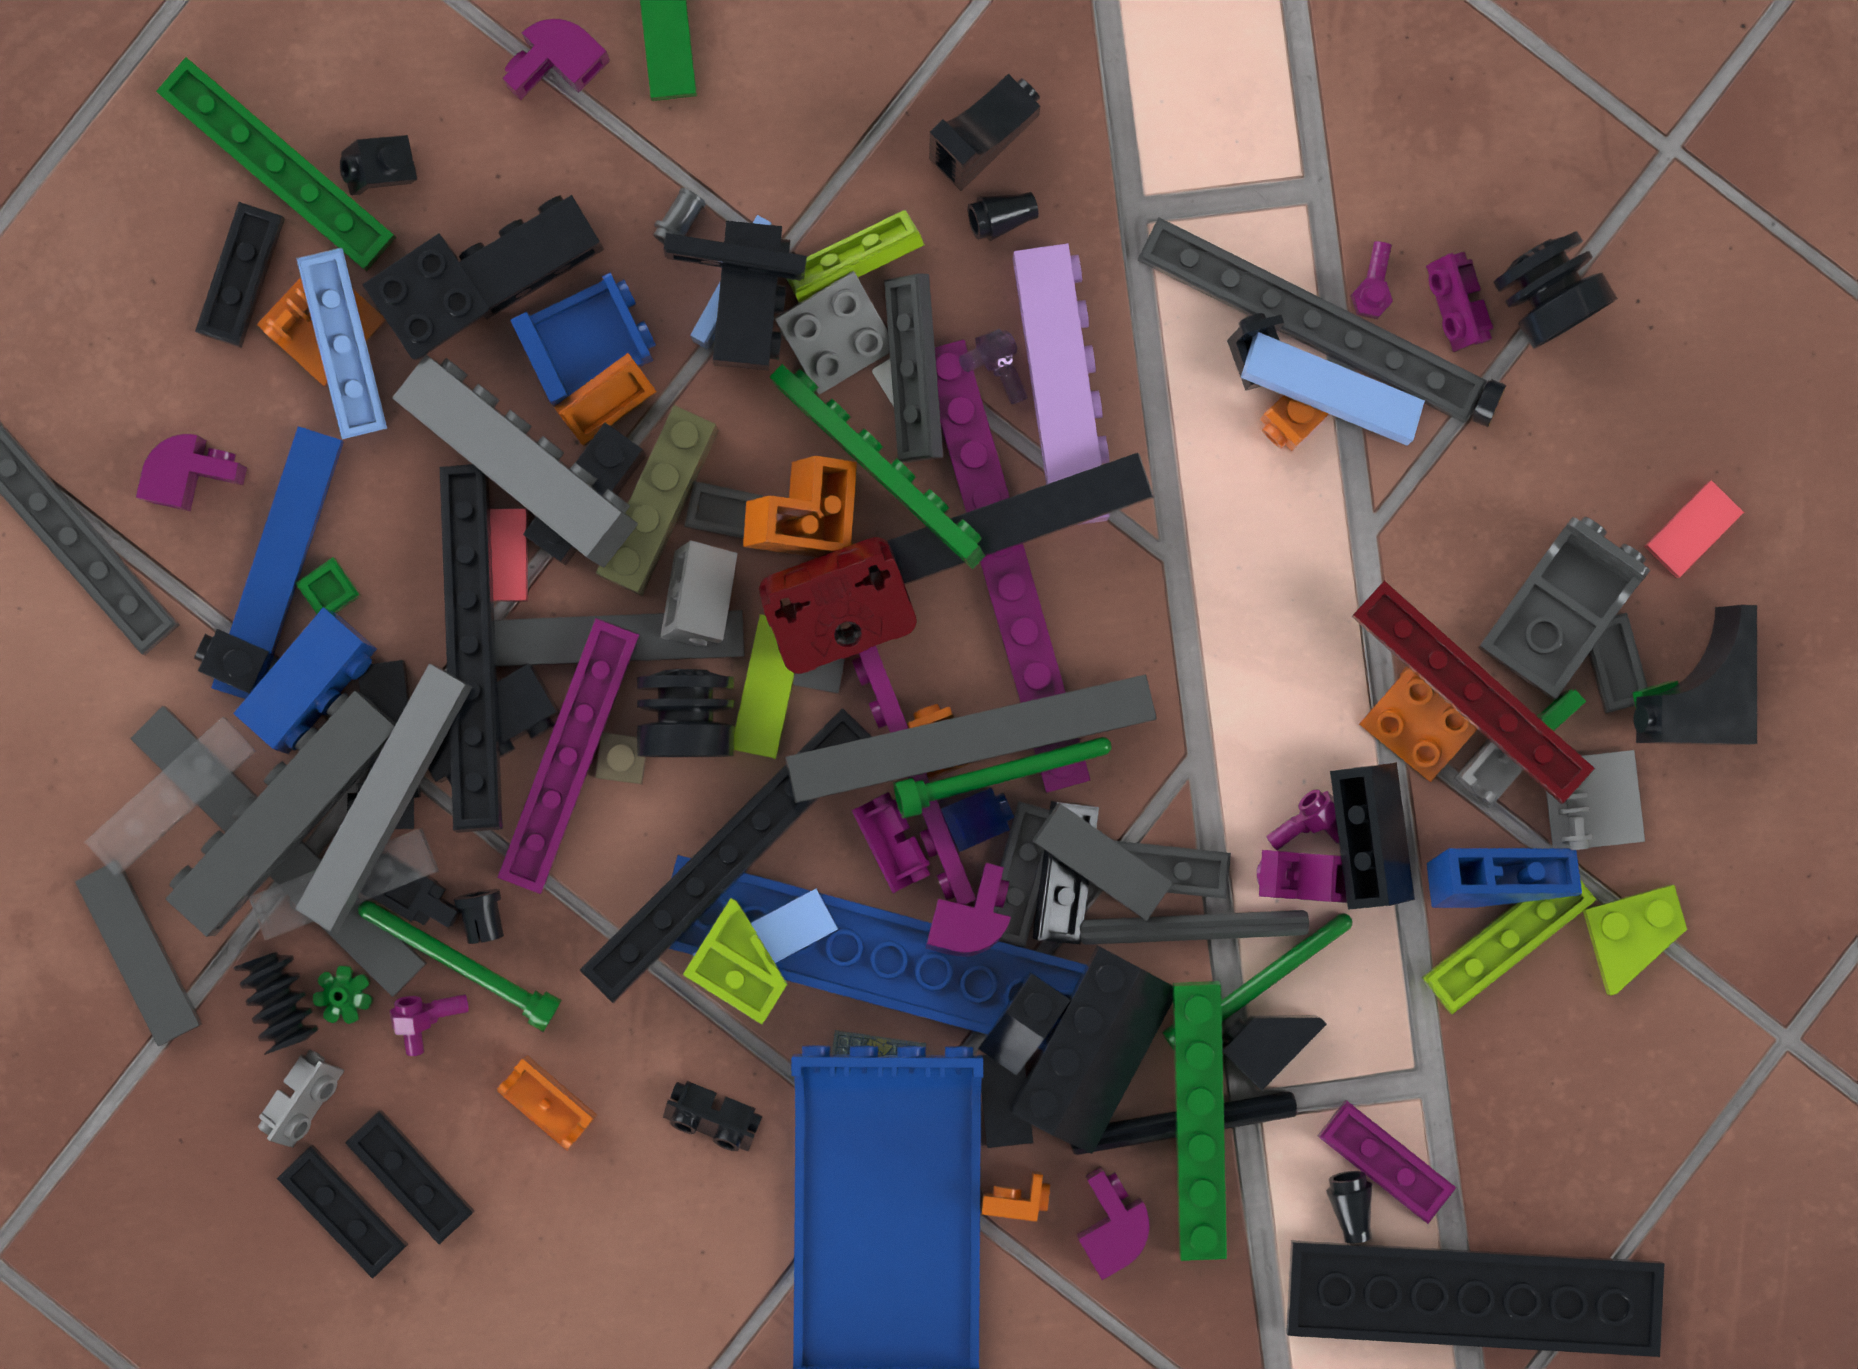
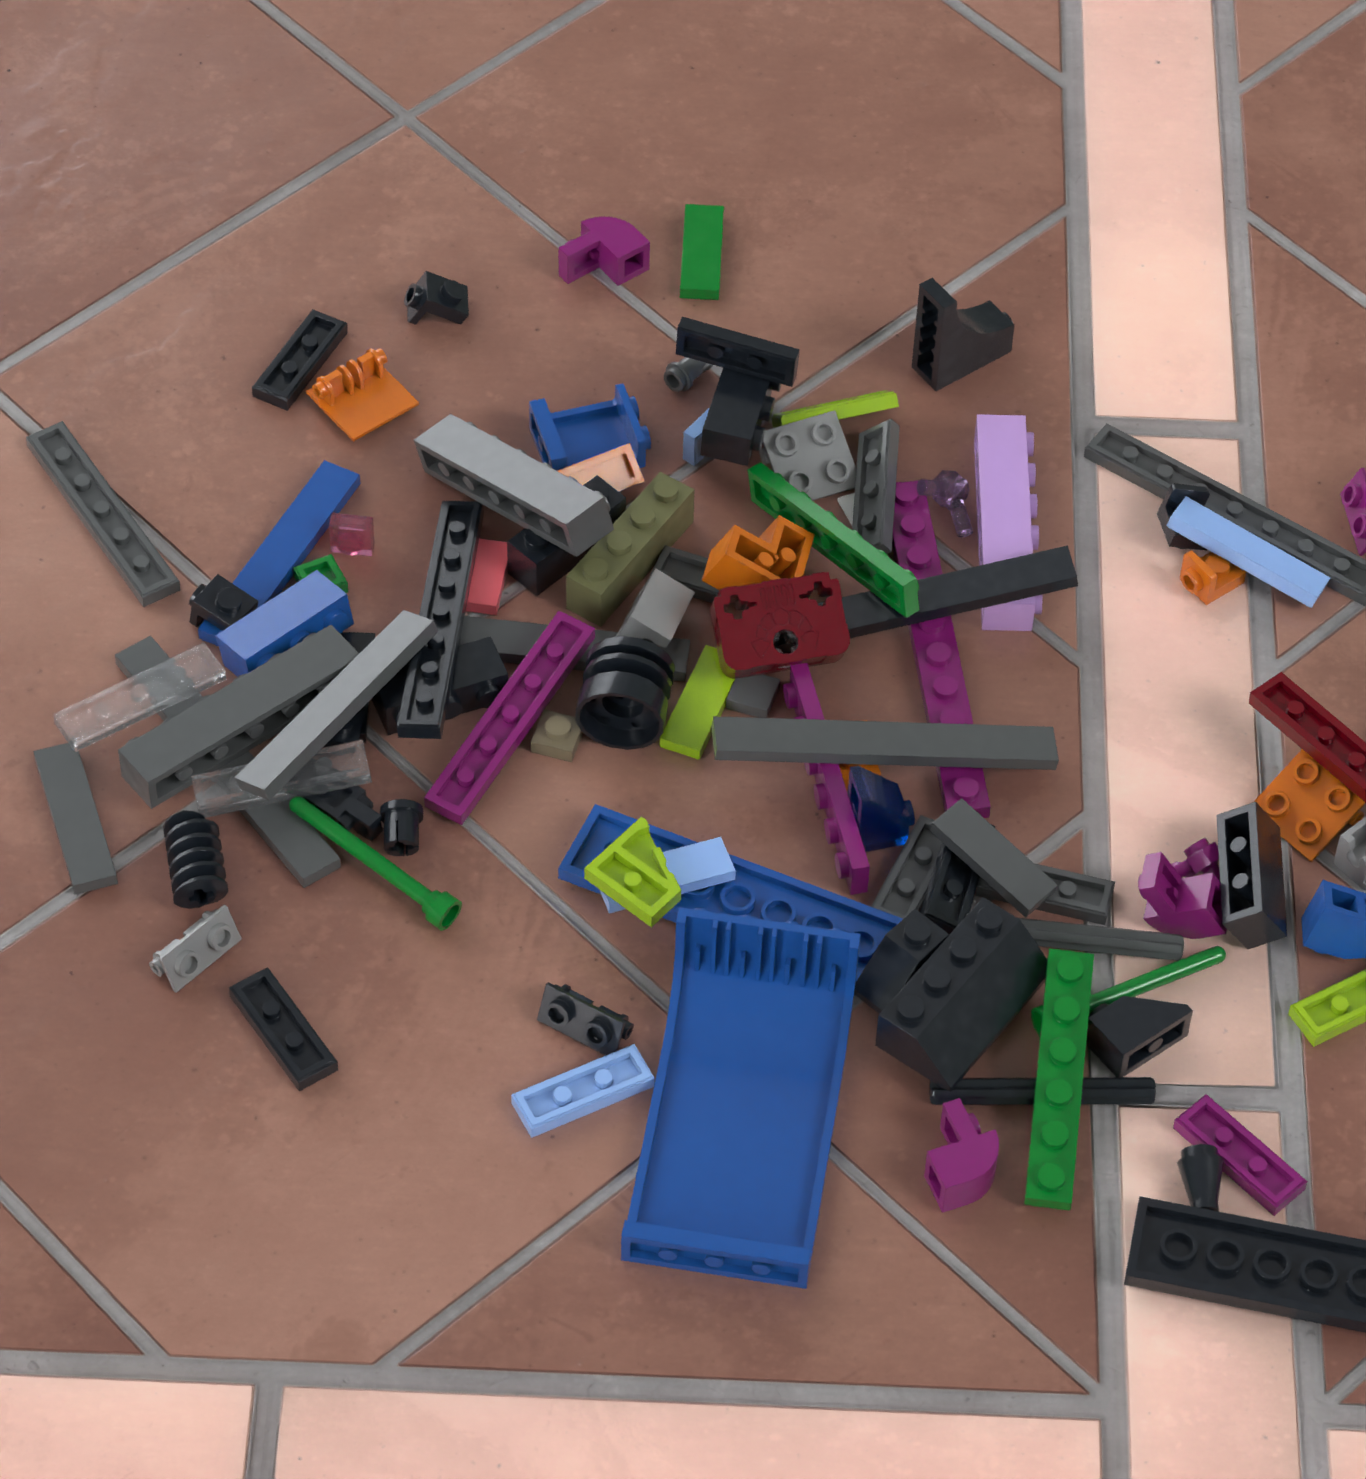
camera: 10 degrees right, 35 degrees down
(174, 468) = (215, 468): magenta brick -> none
(276, 164) = (352, 290): green plate -> none
(341, 343) = (378, 402): light blue tile -> none
(342, 1211) = (211, 1047): black tile -> none
(350, 533) = (351, 534): none -> clear pink plate
(352, 995) = (256, 876): green plant -> none
(413, 1017) = (318, 895): magenta piece -> none
(427, 297) = (458, 375): black bracket -> none
(530, 253) = (553, 371): black brick -> none
(547, 1102) = (430, 981): orange hinge -> none
(708, 873) = (602, 824): black tile -> none
(724, 1199) = (582, 1090): none -> light blue tile
(883, 829) = (803, 838): magenta hinge -> none
(915, 796) = (824, 772): green piece -> none
(967, 929) = (860, 884): magenta brick -> none
(998, 1093) = (867, 1064): black tile -> none
(1000, 214) = (966, 401): black cone -> none
(1009, 1204) = (867, 1128): orange bracket -> none
(1373, 294) = (1290, 497): magenta piece -> none

